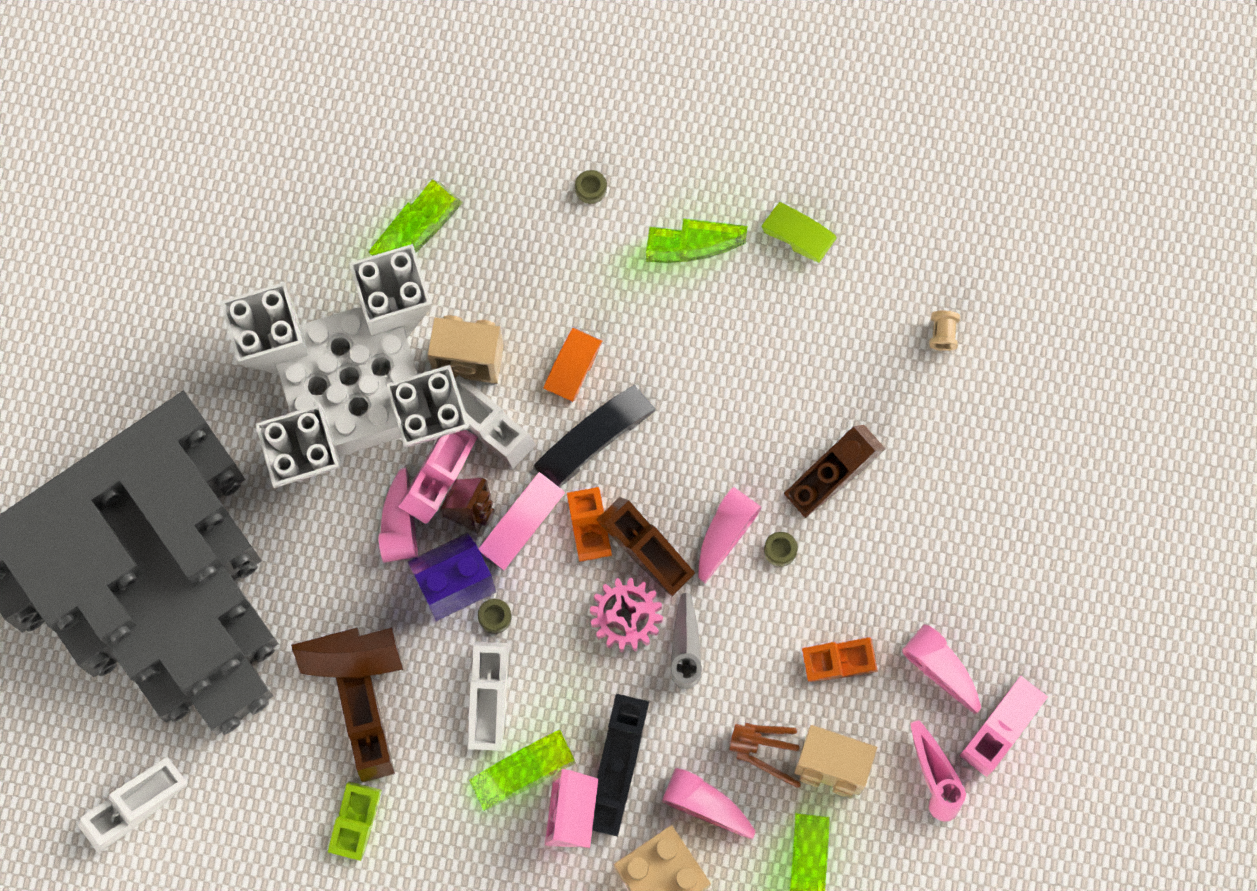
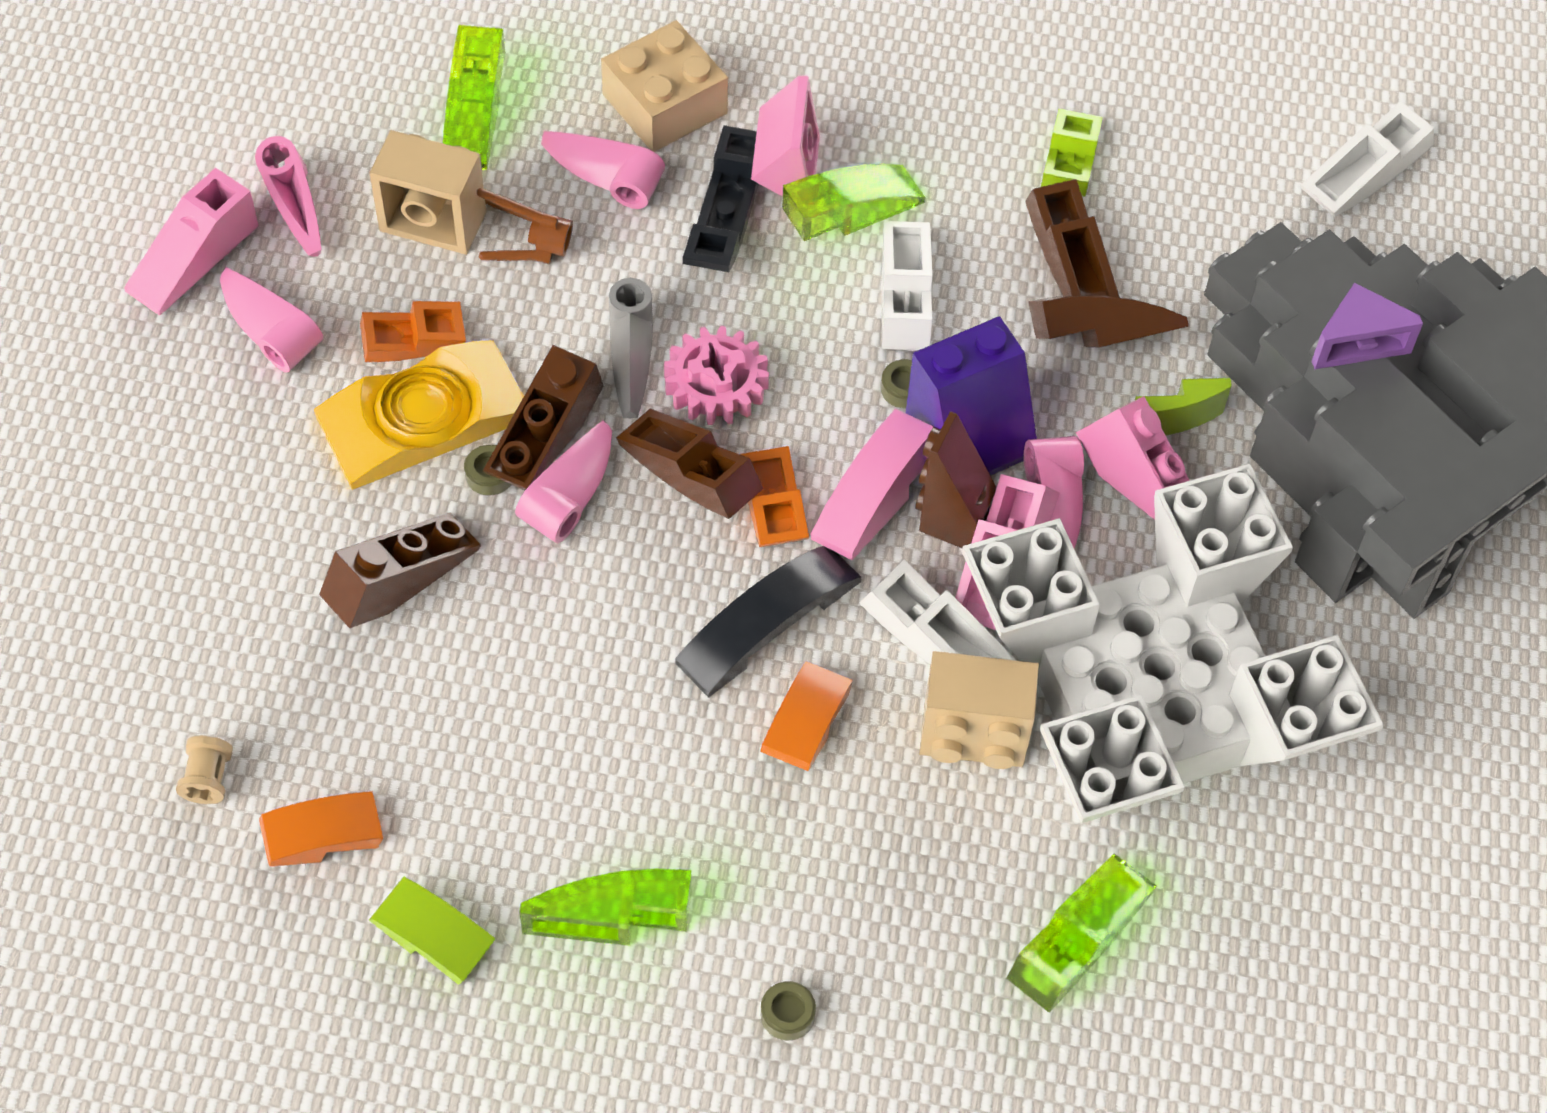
camera: 175 degrees right, 15 degrees down
(185, 557) = (1366, 330): none -> medium lavender slope
(296, 587) = (1195, 404): none -> lime slope
(337, 532) = (1133, 453): none -> bright pink slope
(743, 574) = (546, 418): none -> reddish brown slope
(827, 595) = (419, 412): none -> yellow slope
(869, 293) = (321, 825): none -> orange slope

